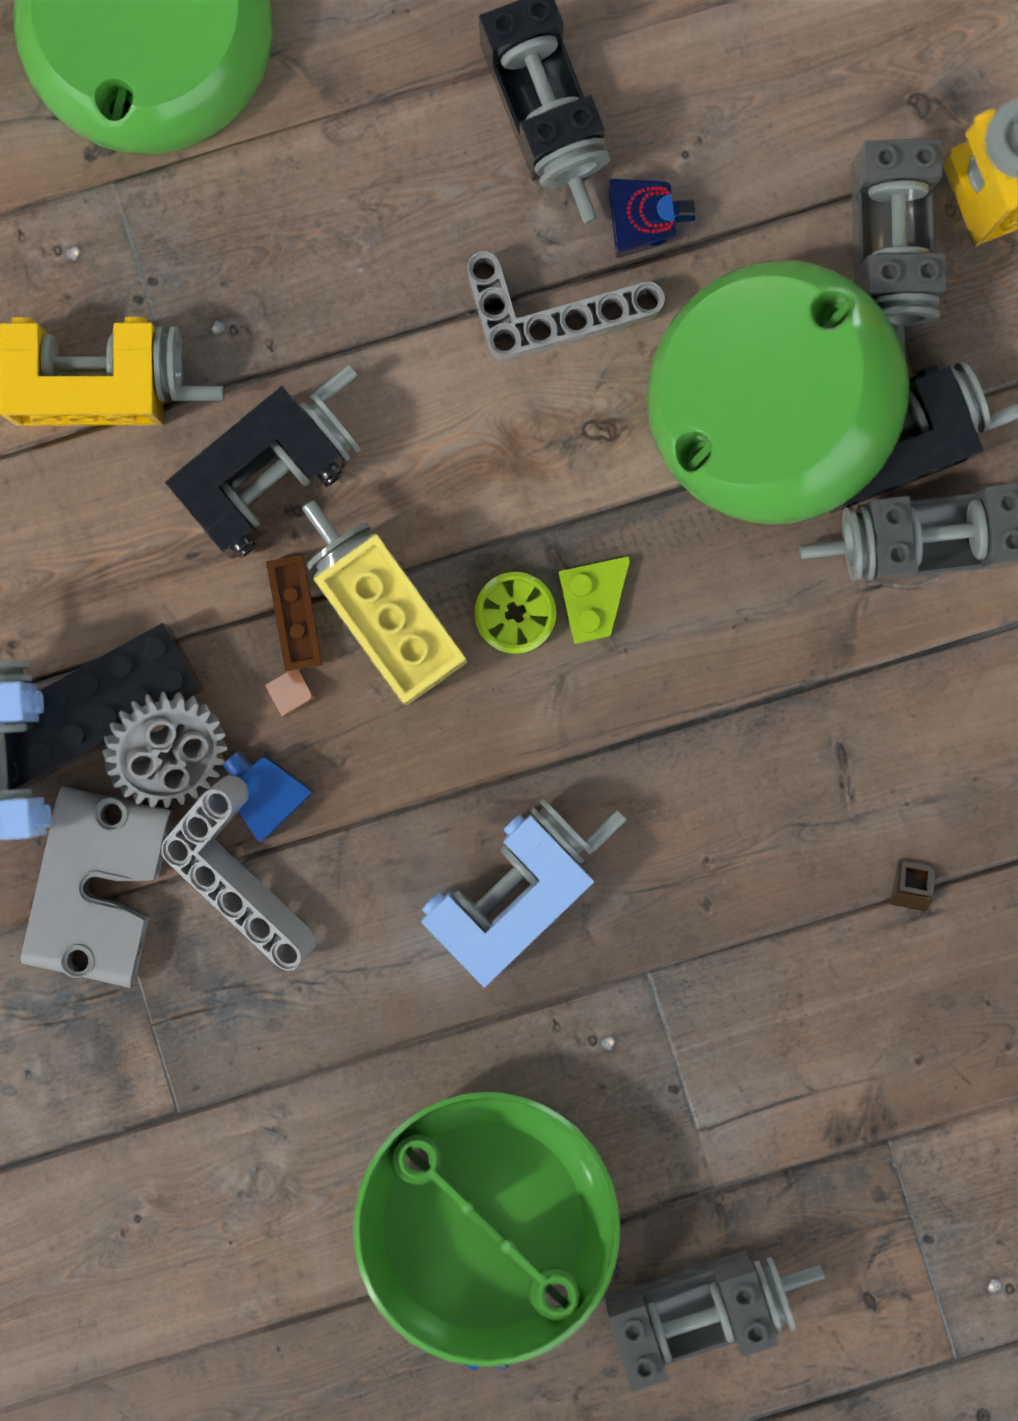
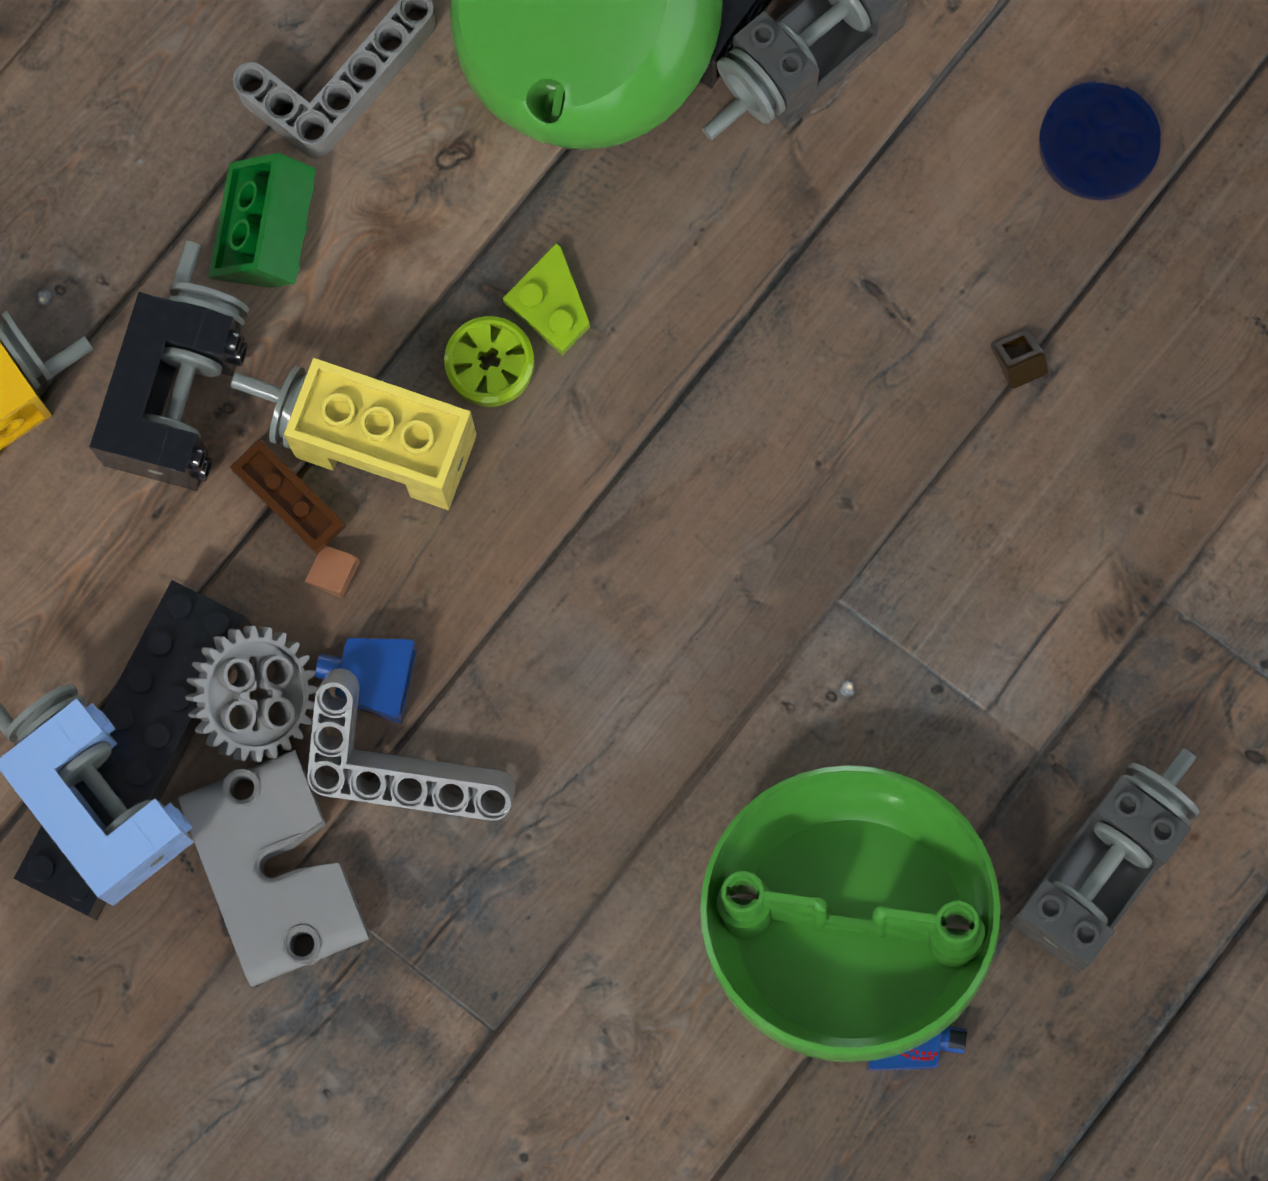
camera: 30 degrees left, 10 degrees down
(419, 385) = (262, 221): none -> green slope
(555, 884) = (666, 549): light blue piece -> none

